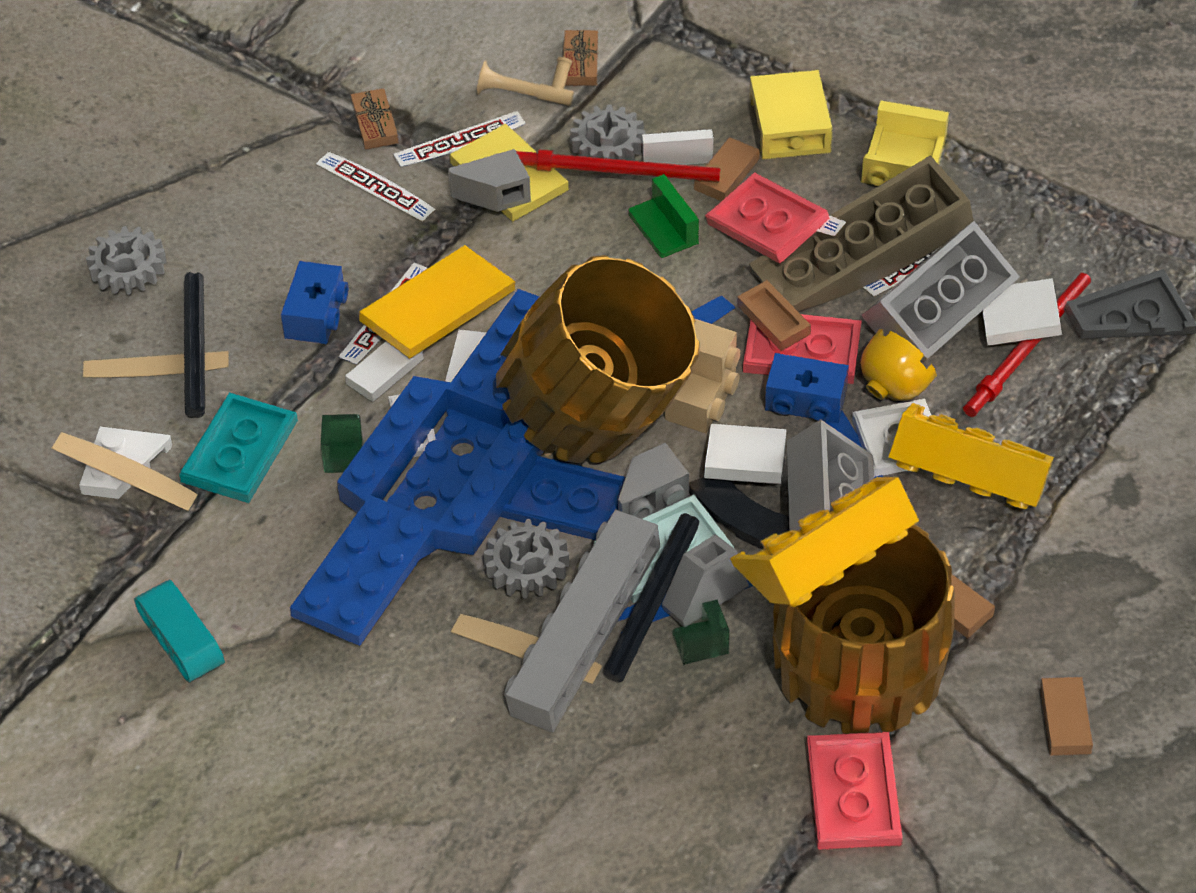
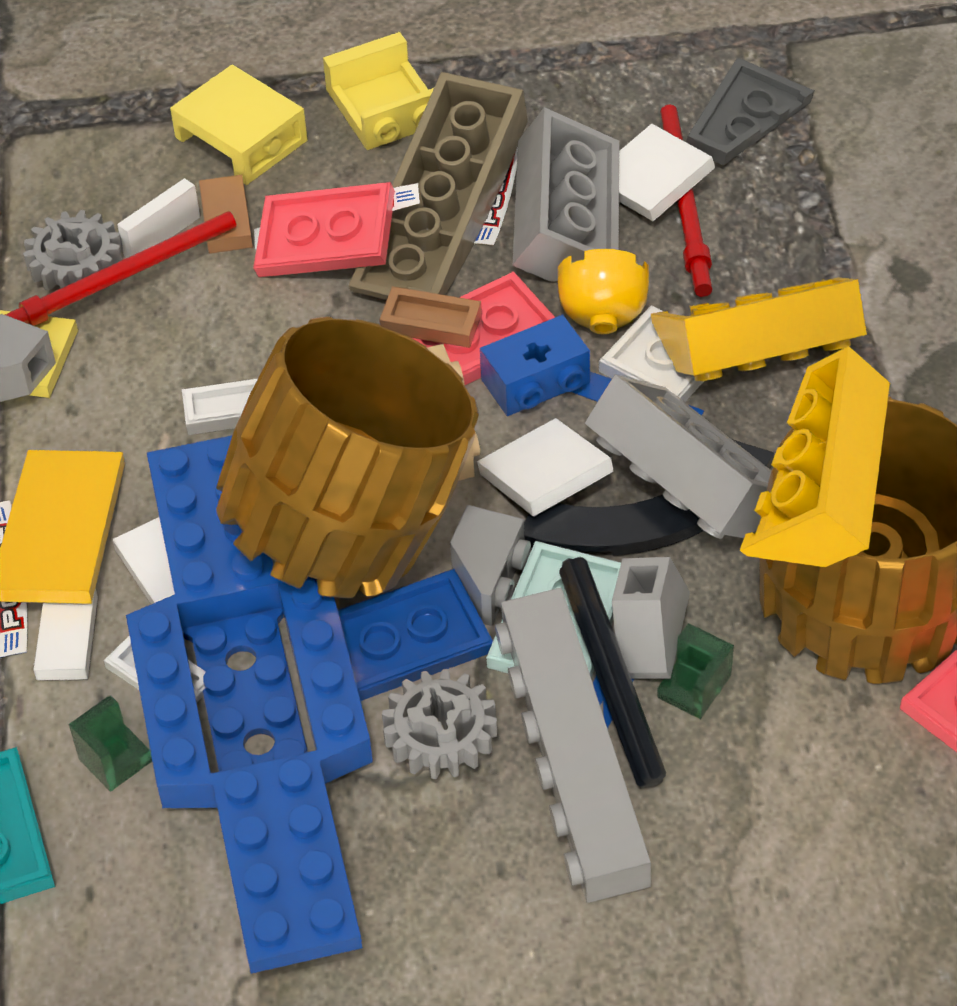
camera: 40 degrees left, 0 degrees up
(504, 639) = (491, 827): tan sticker -> none
(666, 219) = (217, 293): green panel -> none

